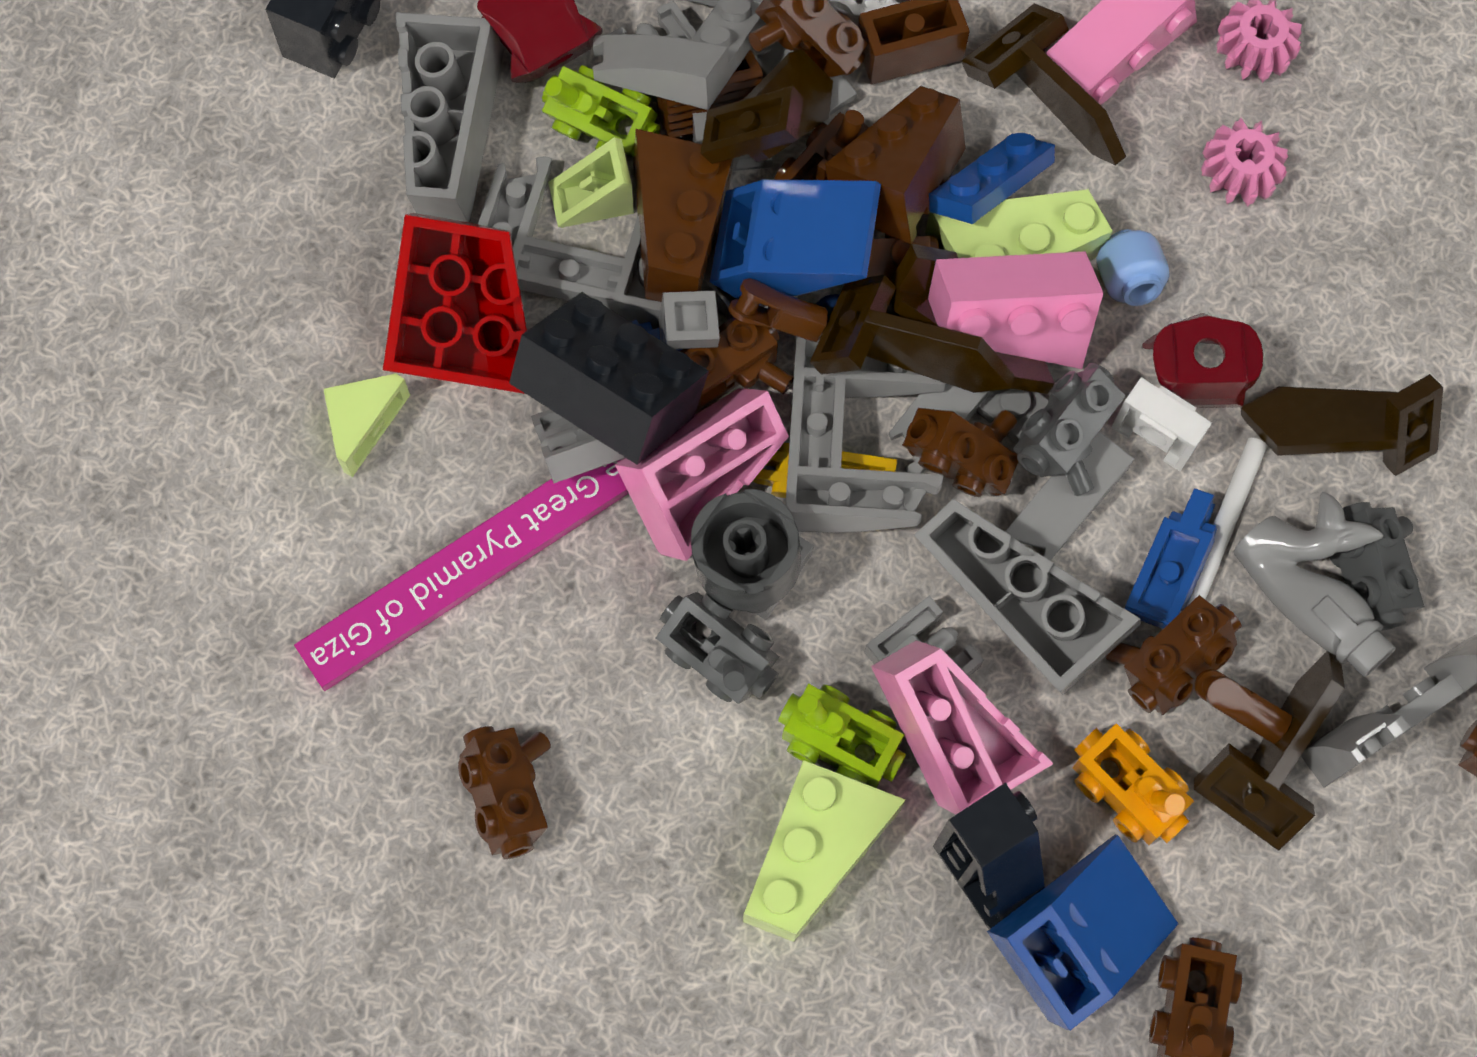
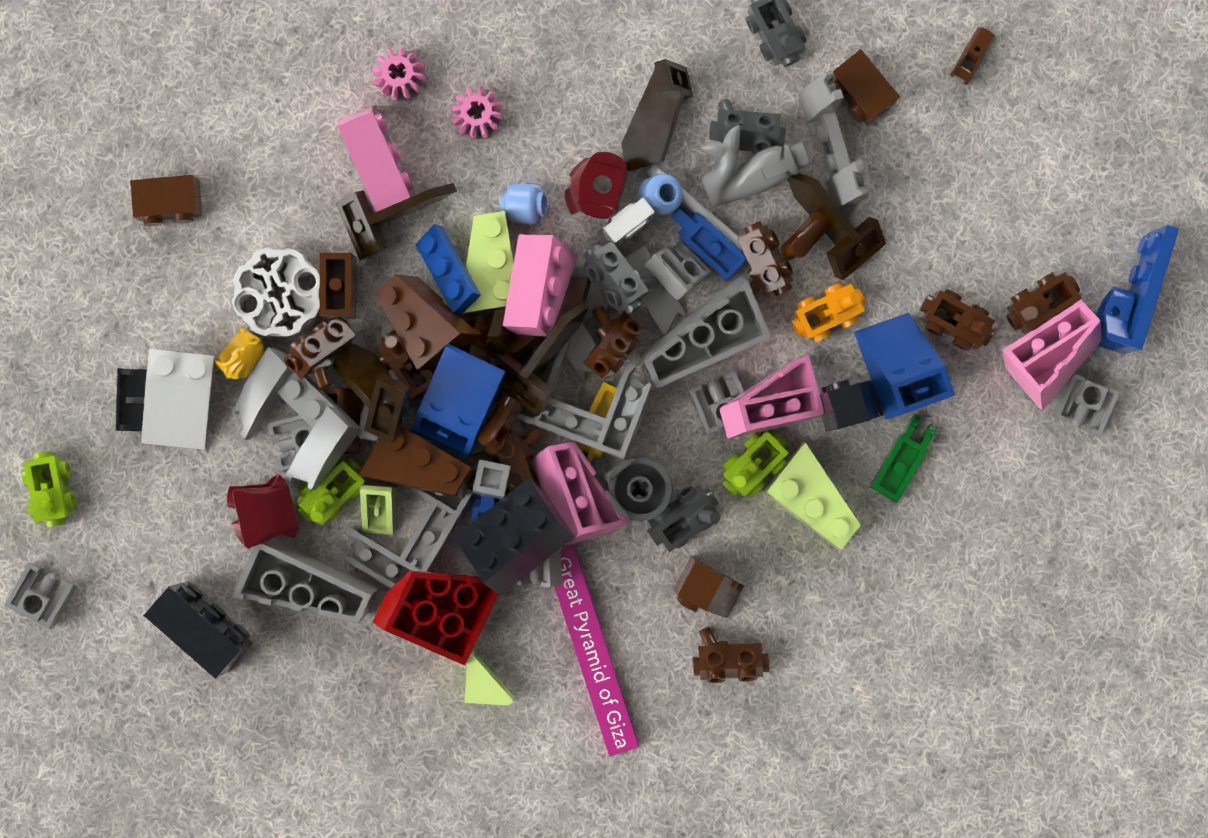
camera: 75 degrees left, 15 degrees up
(613, 708) = (707, 589): none -> reddish brown wedge
(925, 985) = (902, 461): none -> green hinge
(1108, 531) = (677, 268): none -> light grey brick
(1240, 462) = (662, 193): none -> light blue head

